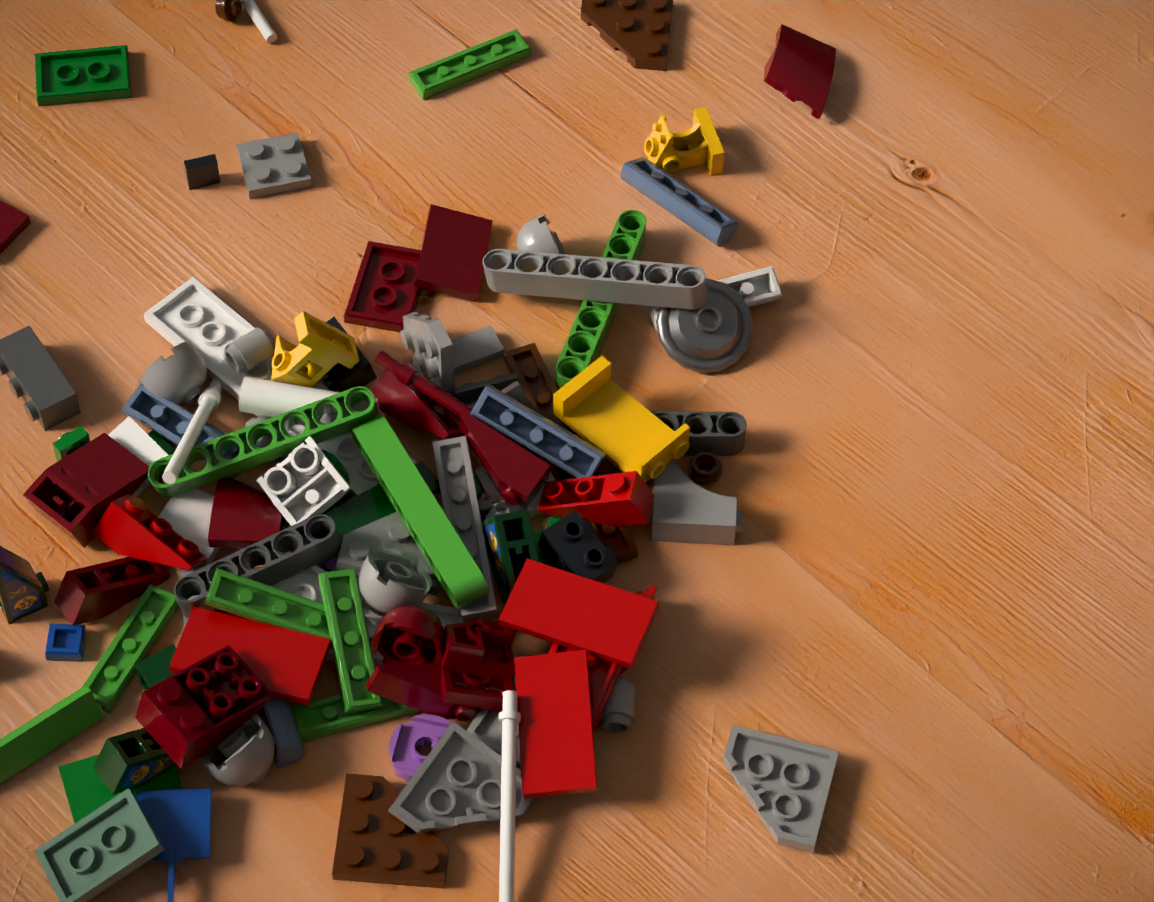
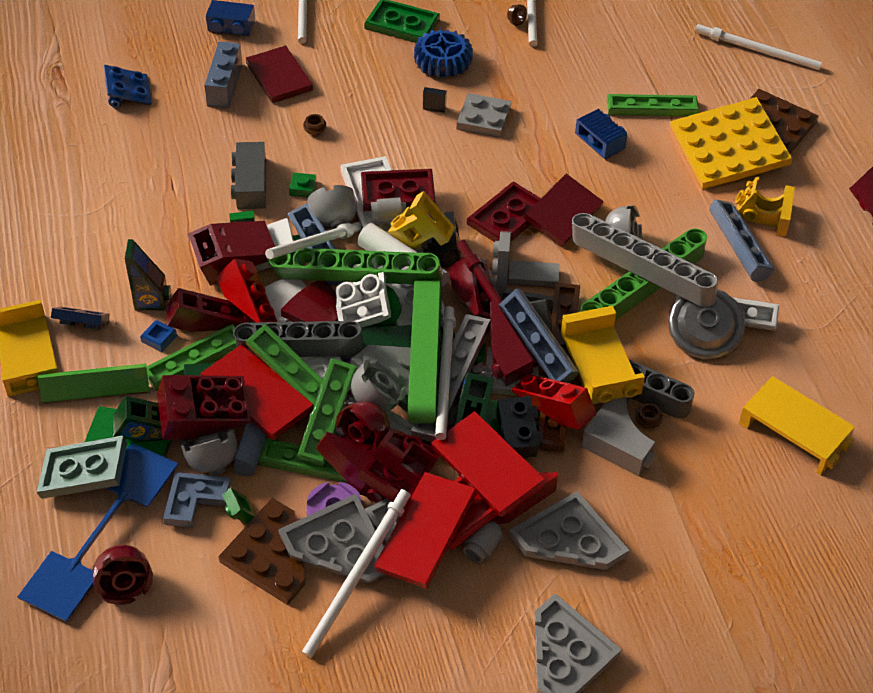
camera: 30 degrees right, 5 degrees down
(66, 266) = (314, 124): none -> reddish brown plate
(109, 361) = (302, 184): none -> green plate
(170, 101) = (443, 53): none -> blue gear
(238, 311) = (396, 184): none -> dark red tile
(247, 812) = (188, 492): none -> sand blue plate
(315, 804) = (238, 506): none -> green plate
(435, 130) = (601, 133): none -> blue brick
(494, 584) = (448, 323): none -> white bar
(593, 78) = (730, 143): none -> yellow plate
(705, 651) = (570, 535): none -> light grey plate
(871, 398) = (799, 421): none -> yellow panel

